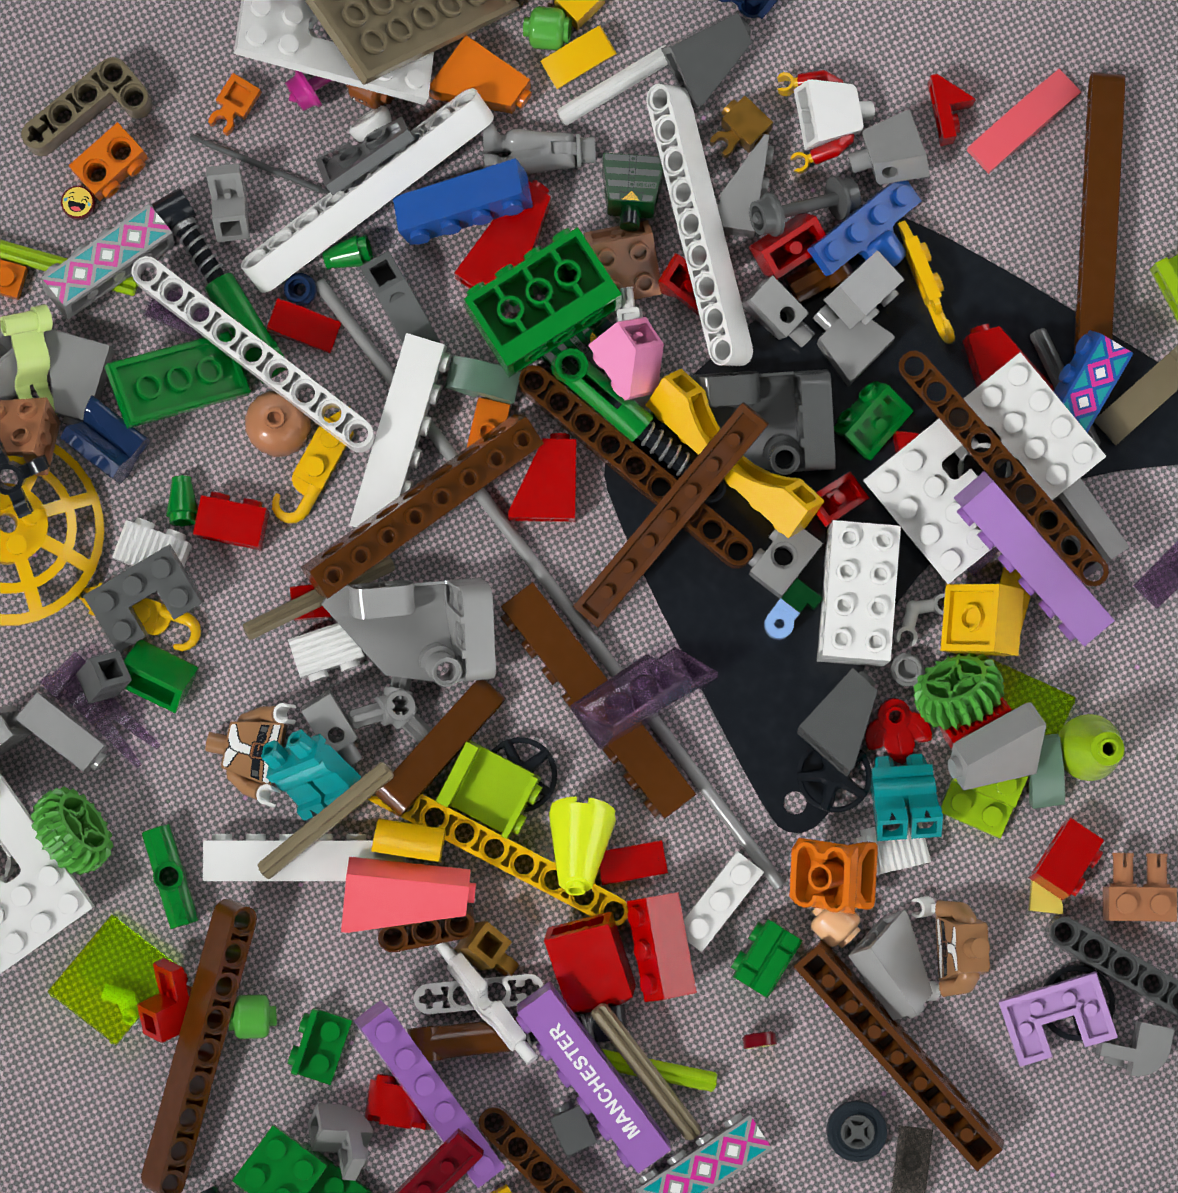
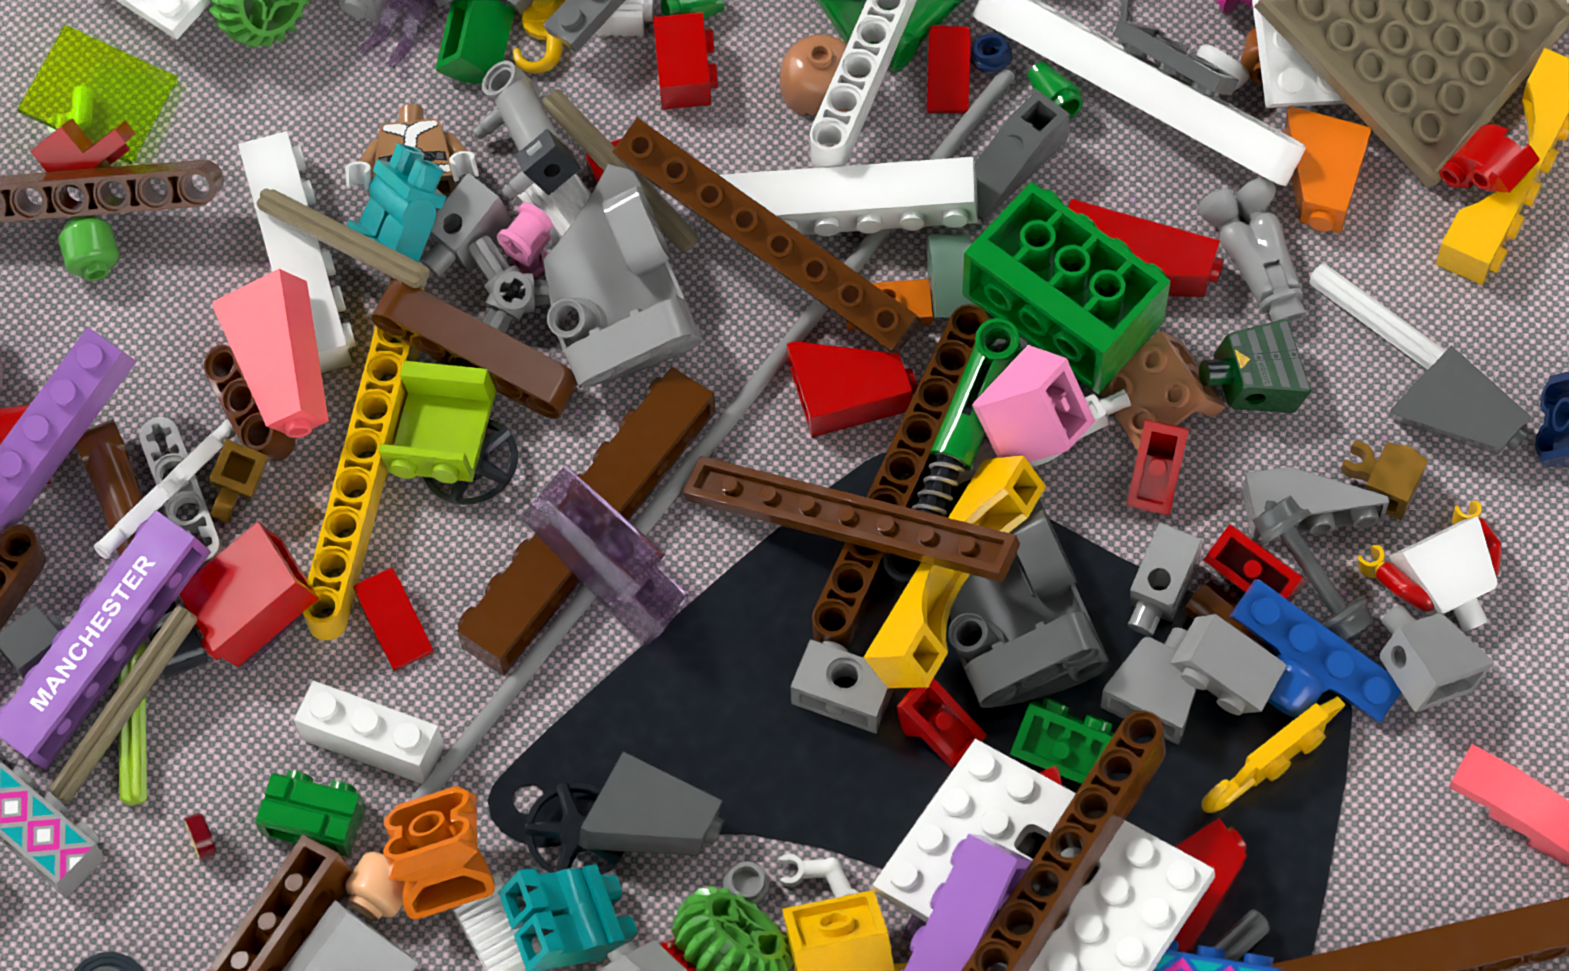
camera: 75 degrees right, 20 degrees down
(164, 854) = (256, 106): green piece -> none
(303, 651) = (541, 152): none -> light grey piece
(313, 471) = (769, 132): yellow plate -> none
(320, 1046) = (60, 323): green bracket -> none
(361, 683) = (526, 239): none -> bright pink connector
(408, 840) = (343, 338): yellow brick -> none
(462, 202) = (1162, 181): blue brick -> none
(547, 28) = (1420, 220): bright green head -> none
(578, 57) = (1399, 265): yellow slope -> none
(580, 840) = (396, 534): neon yellow cone -> none
(661, 947) = (284, 661): slope -> none
(699, 225) = (1235, 450): white beam -> none
(781, 618) = (780, 710): leg -> none
(858, 593) = (822, 775): white brick -> none
(898, 735) = (653, 895): red plate -> none
(944, 99) = (1522, 710): red slope -> none

